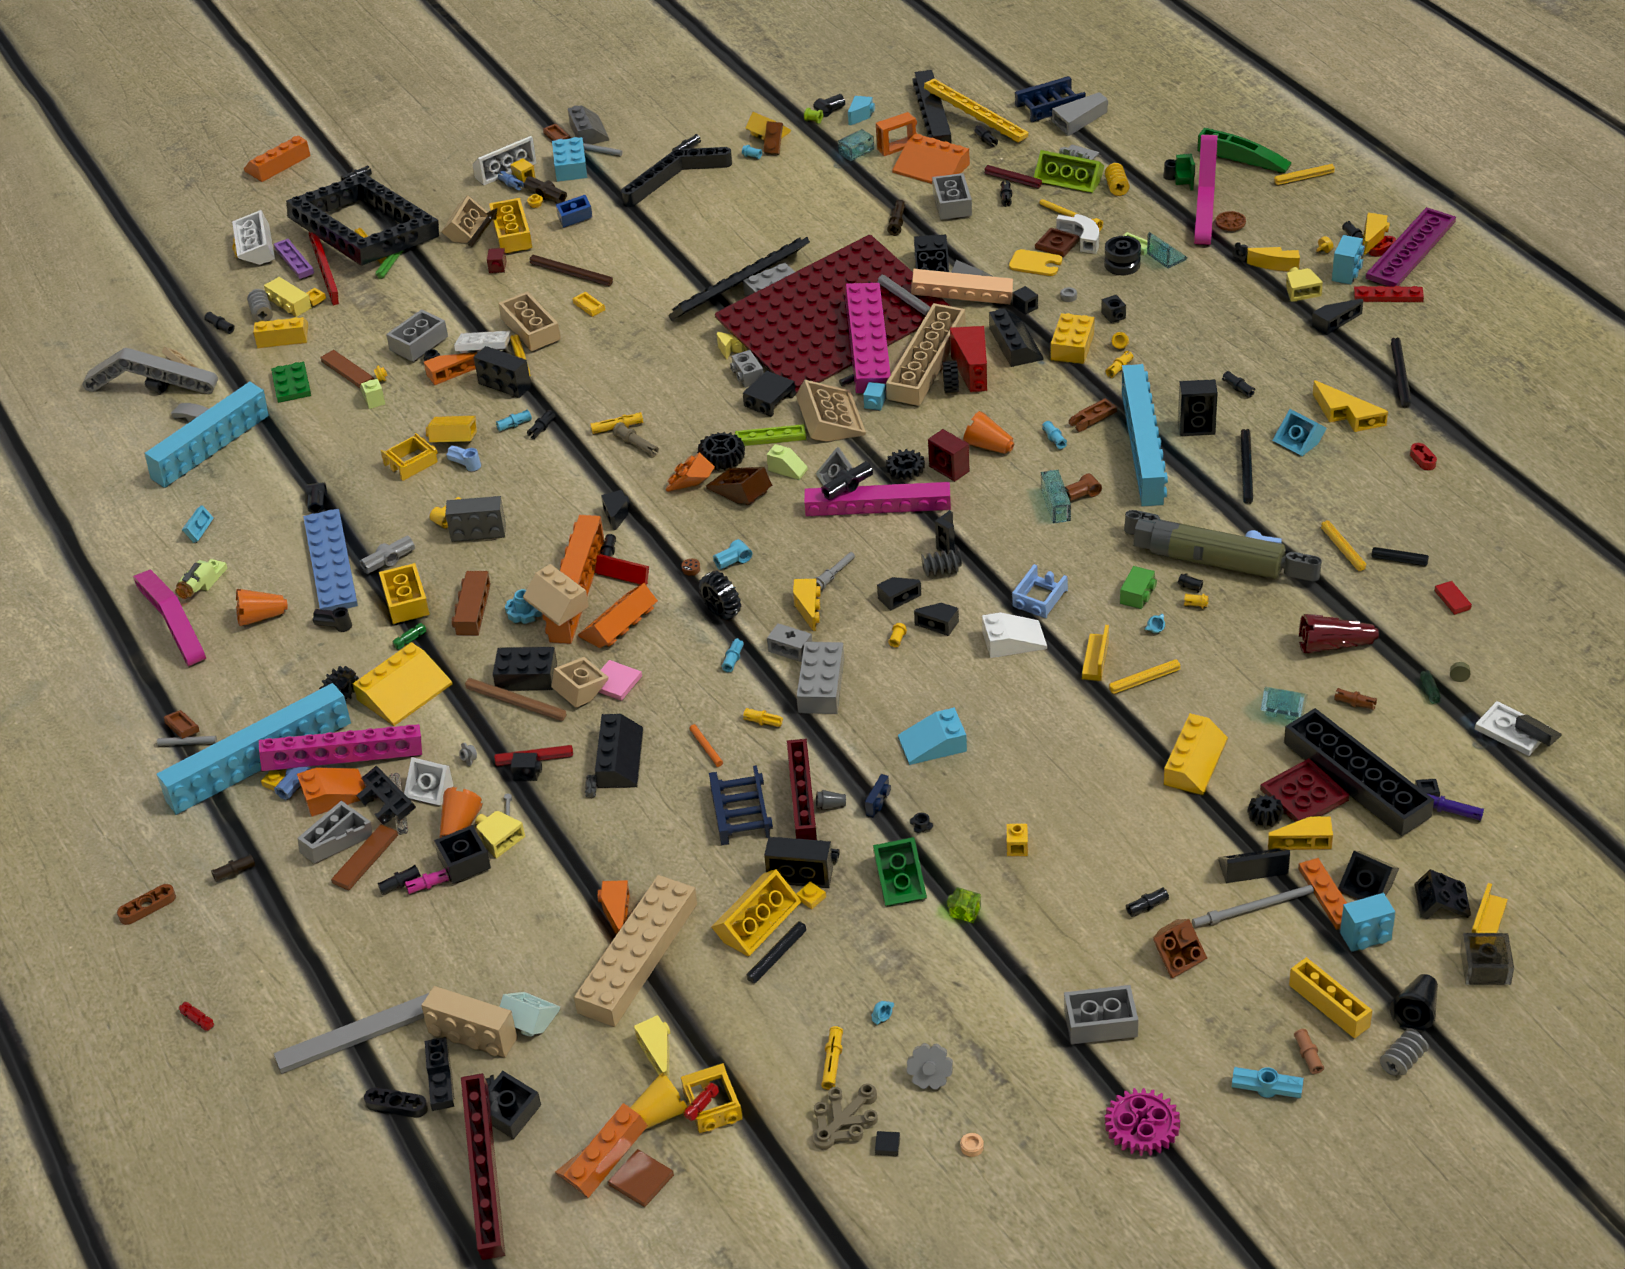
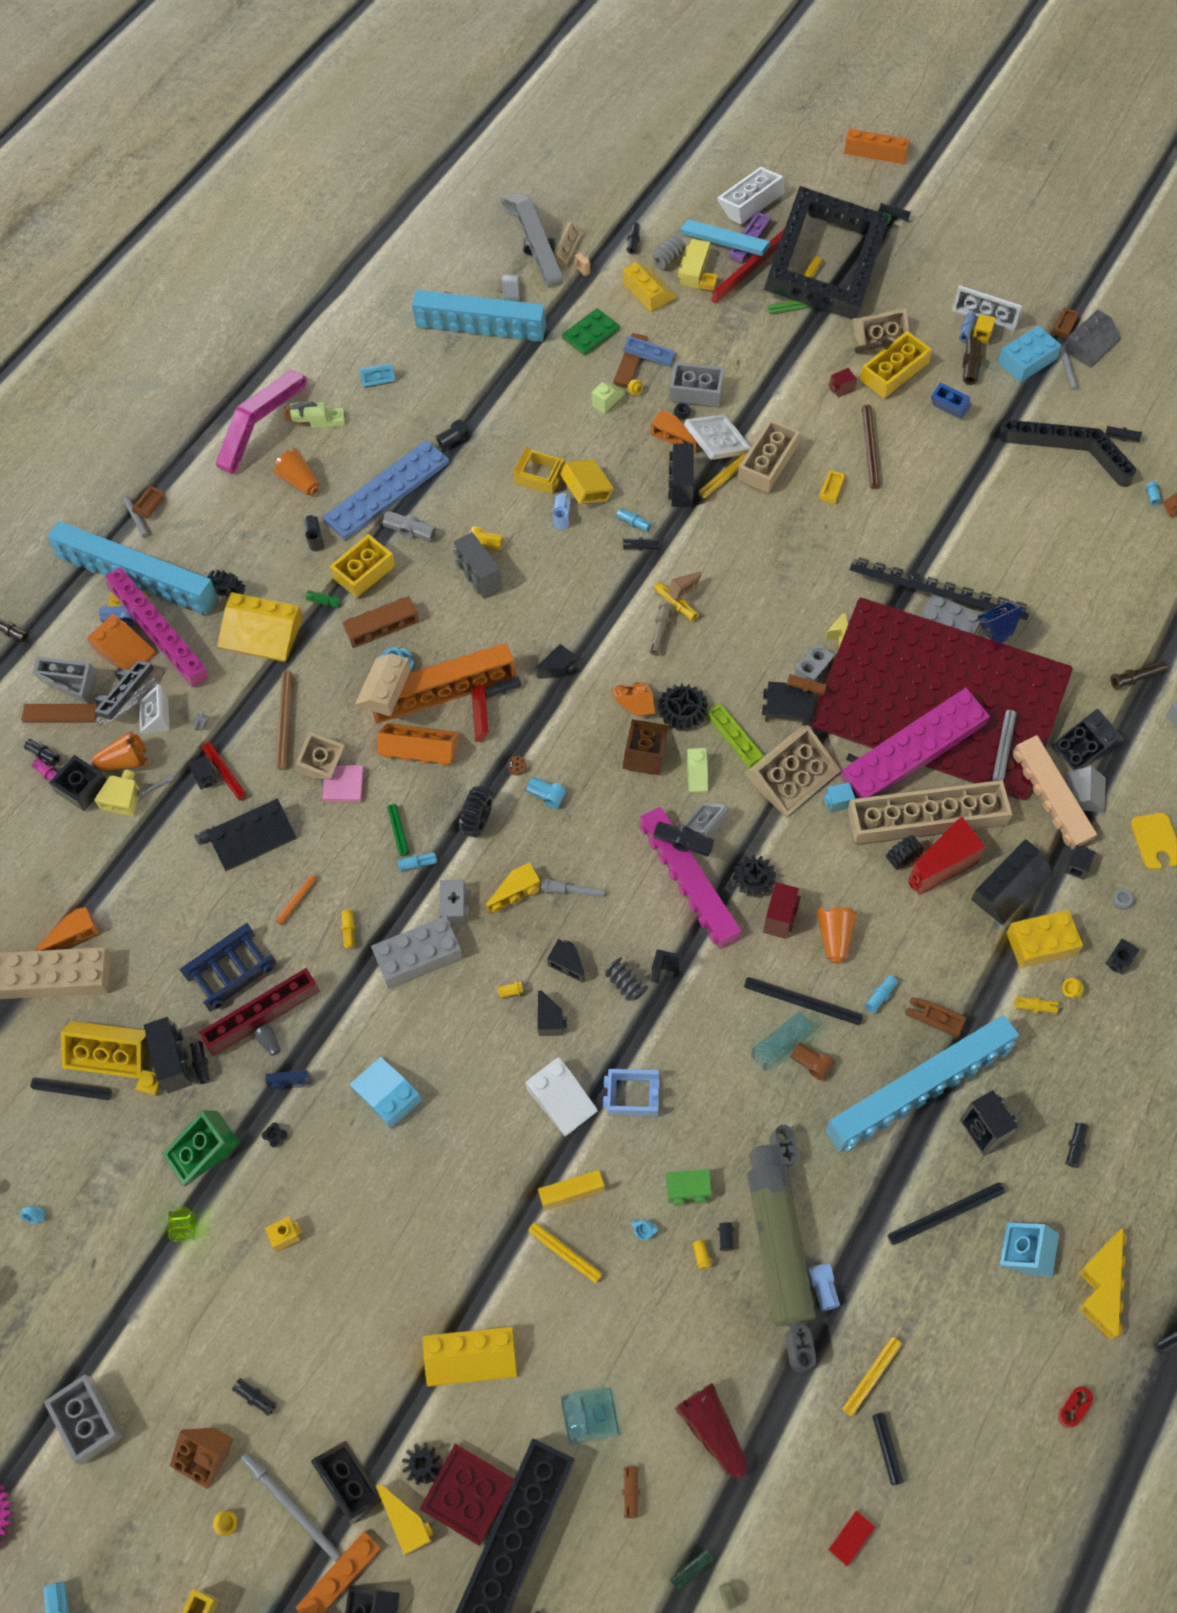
camera: 60 degrees right, 20 degrees up
(215, 360) = (582, 264): none -> light nougat plate
(281, 268) = (725, 237): none -> medium azure tile
(351, 353) = (648, 351): none -> medium blue tile
(524, 668) = (317, 706): black brick -> none
(535, 200) = (953, 362): yellow plate -> none
(610, 408) = (682, 585): none -> medium nougat slope
(691, 658) = (398, 830): none -> green axle
(765, 370) = (806, 684): none -> dark orange pin
(803, 248) = (1001, 621): none -> clear blue slope
(1028, 478) = (803, 1001): none -> black axle
(1244, 948) = (225, 1523): none -> yellow tile

